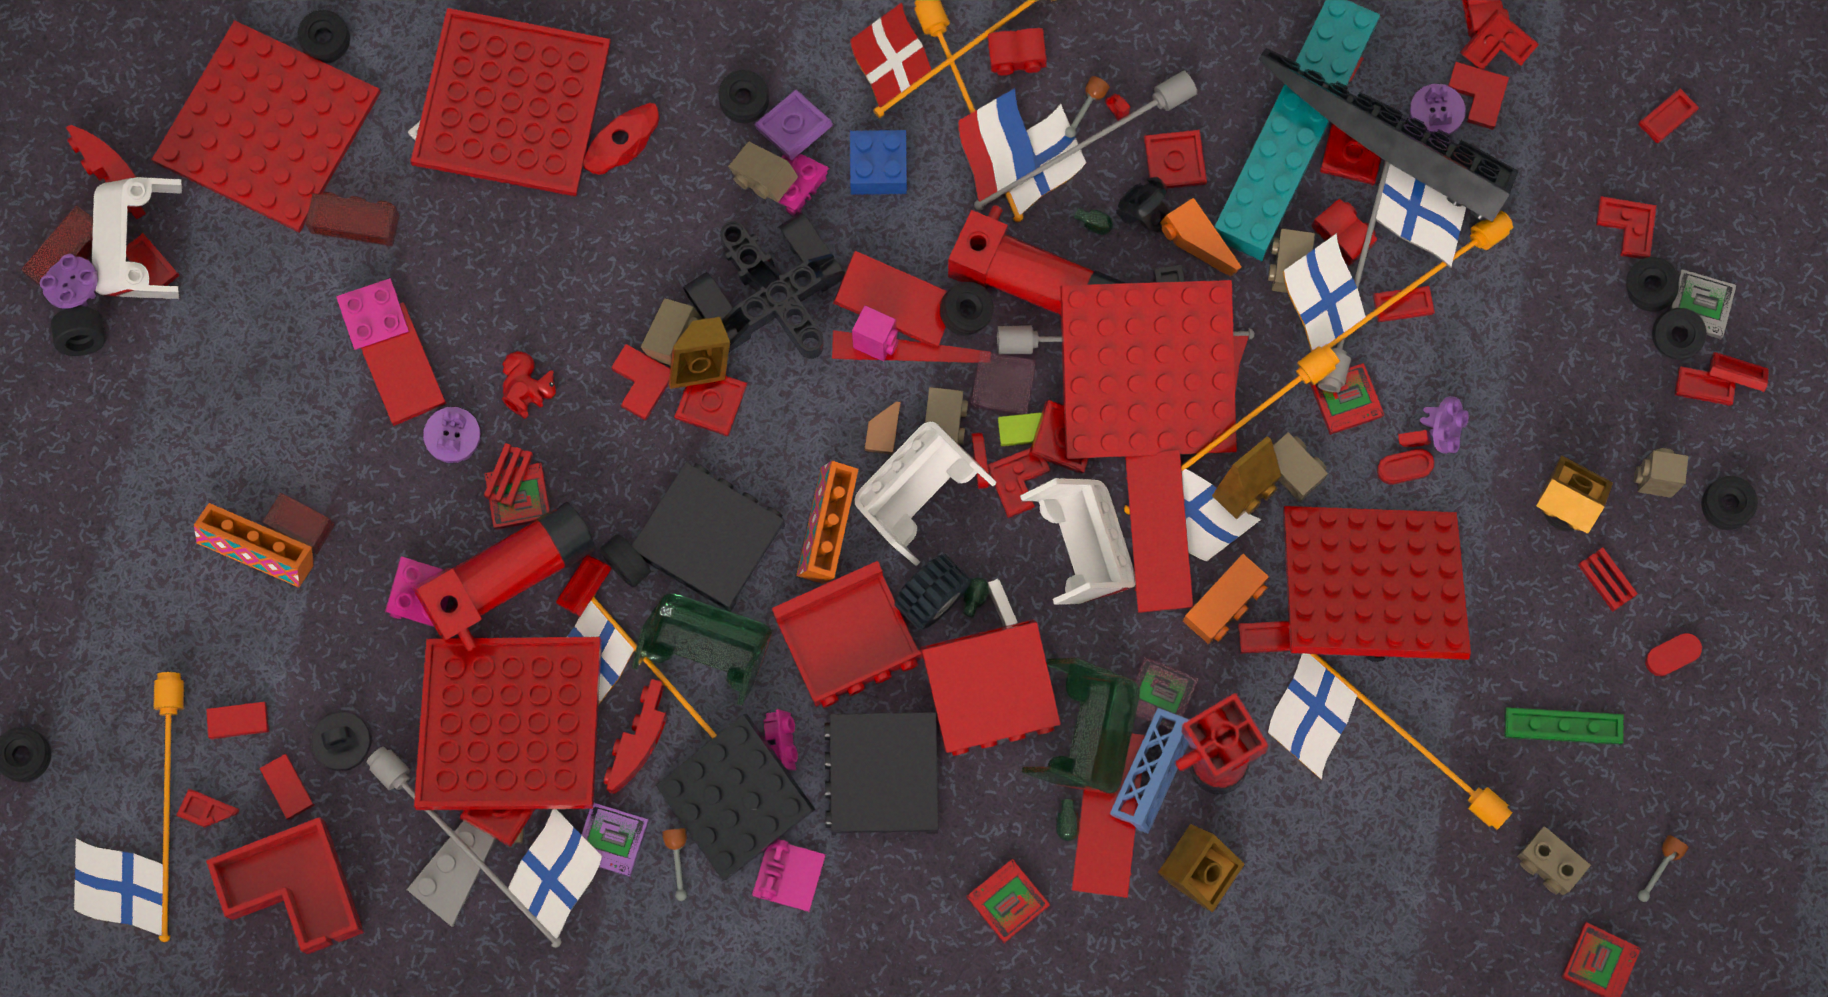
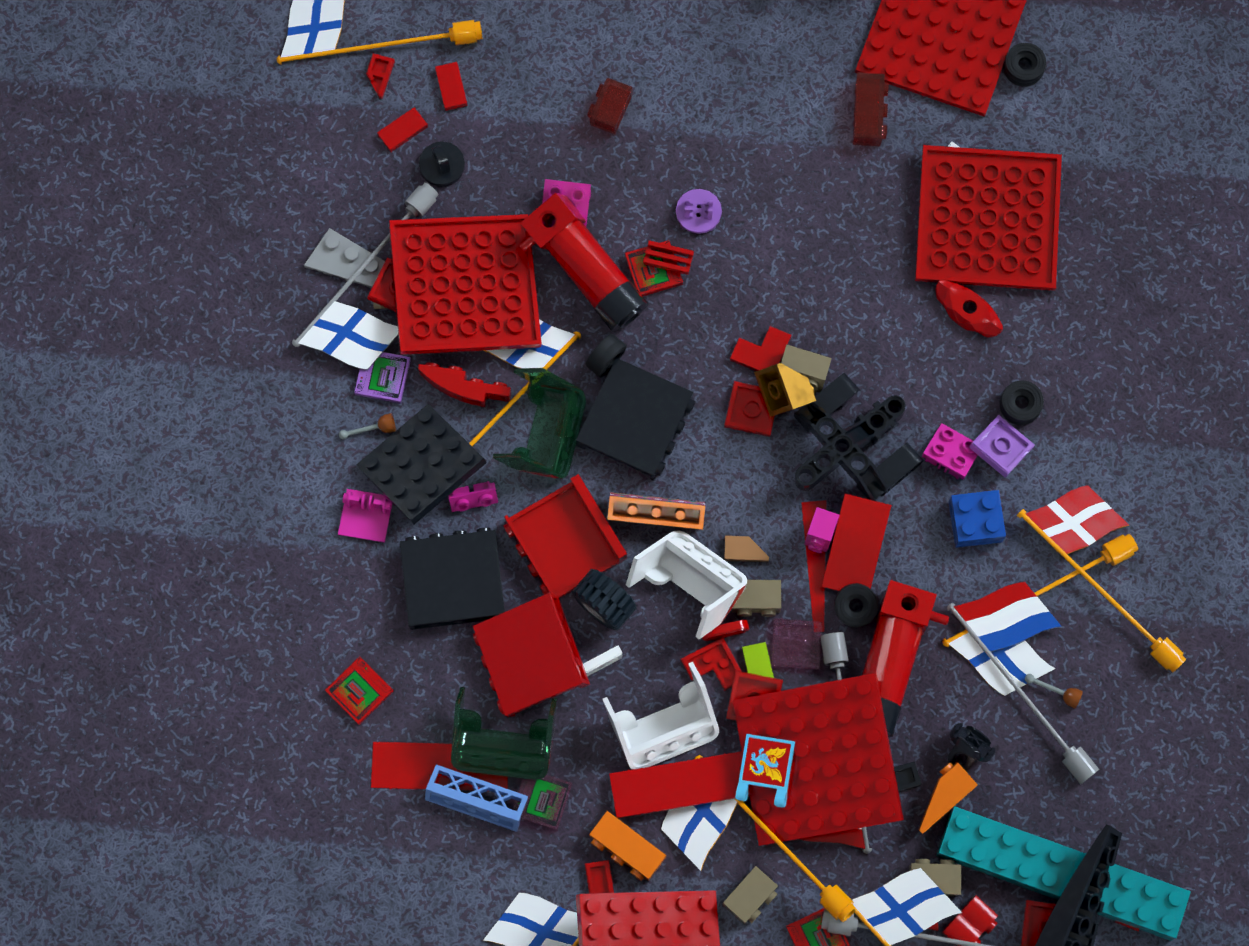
camera: 85 degrees right, 0 degrees up
(253, 545) = (588, 74): orange brick -> none
(291, 868) = (334, 147): red piece -> none
(372, 314) = (790, 135): dark pink hinge -> none
(403, 374) = (753, 162): red tile -> none
(520, 388) = (744, 256): red animal -> none
(583, 585) = (584, 327): red tile -> none
(762, 172) = (953, 424): dark tan brick -> none
(975, 595) = (610, 638): clear green cylinder -> none
(1017, 51) = (1097, 625): red brick -> none
(1067, 822) = (428, 732): clear green cylinder -> none
(1095, 221) = (951, 707): clear green cylinder -> none
(1118, 106) = (1059, 716): red tile -> none
(1150, 425) = (766, 764): none -> flag
(1176, 158) = (1018, 772): red tile -> none
(1201, 867) = (398, 844): pearl gold slope -> none
(1222, 746) = (481, 835): red piece -> none
(1249, 480) = (730, 855): pearl gold slope -> none

